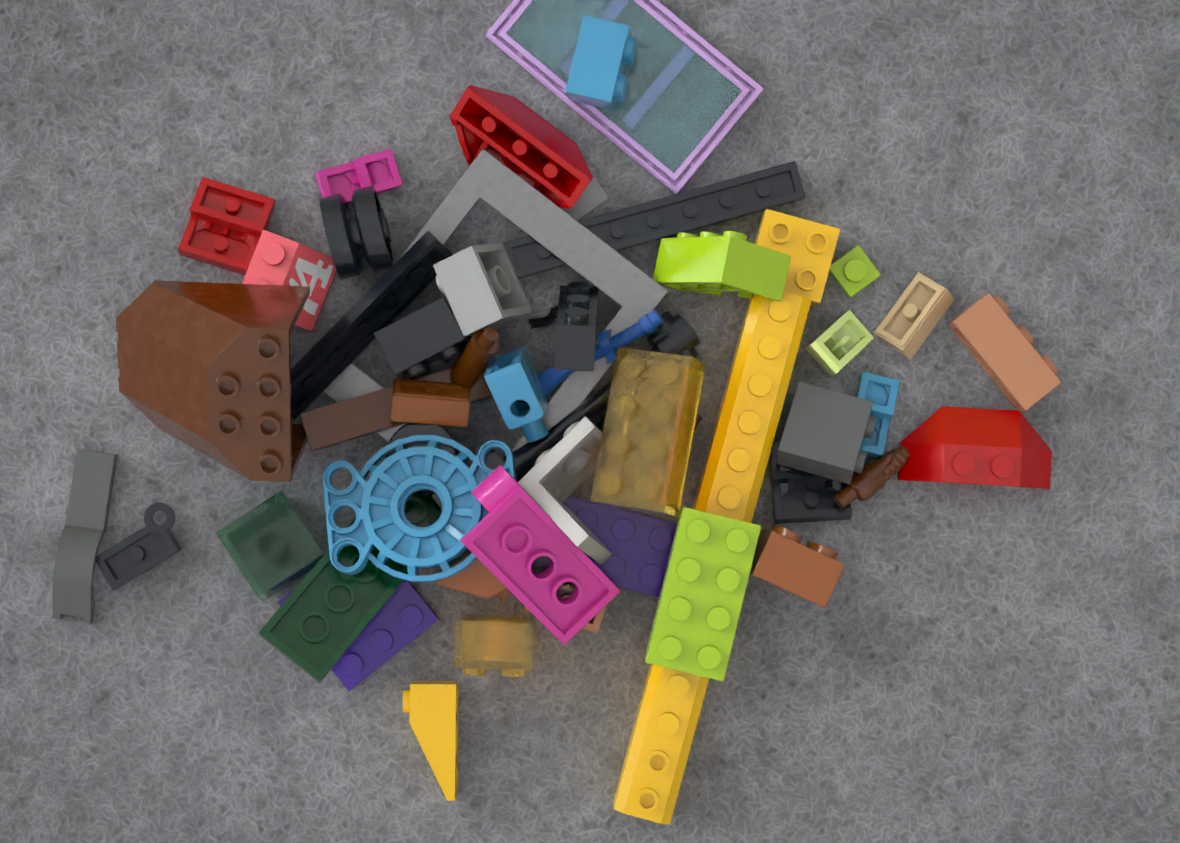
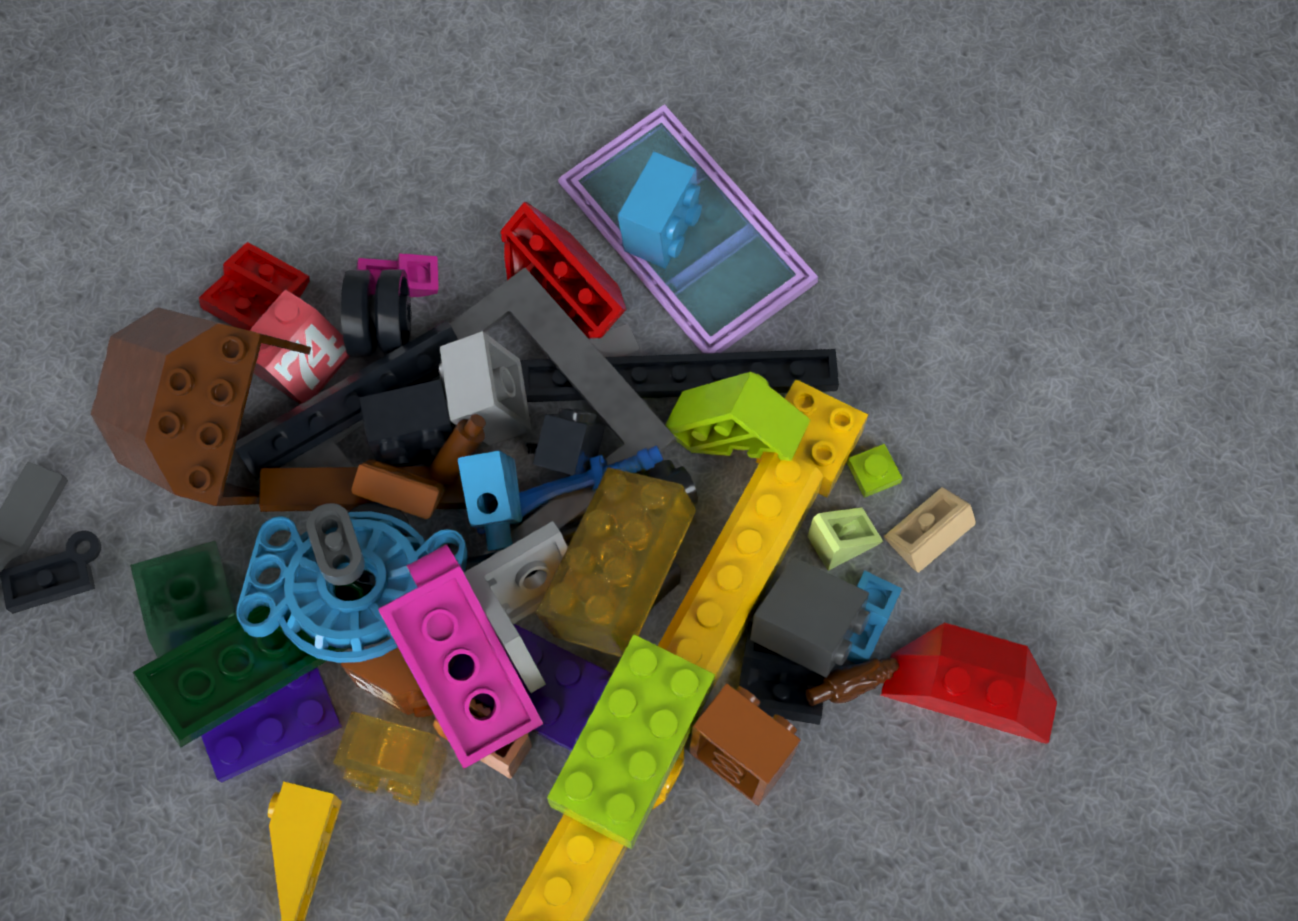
camera: 15 degrees right, 20 degrees down
(400, 482) = (337, 546): none -> dark grey plate
(1005, 352) = (1021, 582): nougat brick -> none

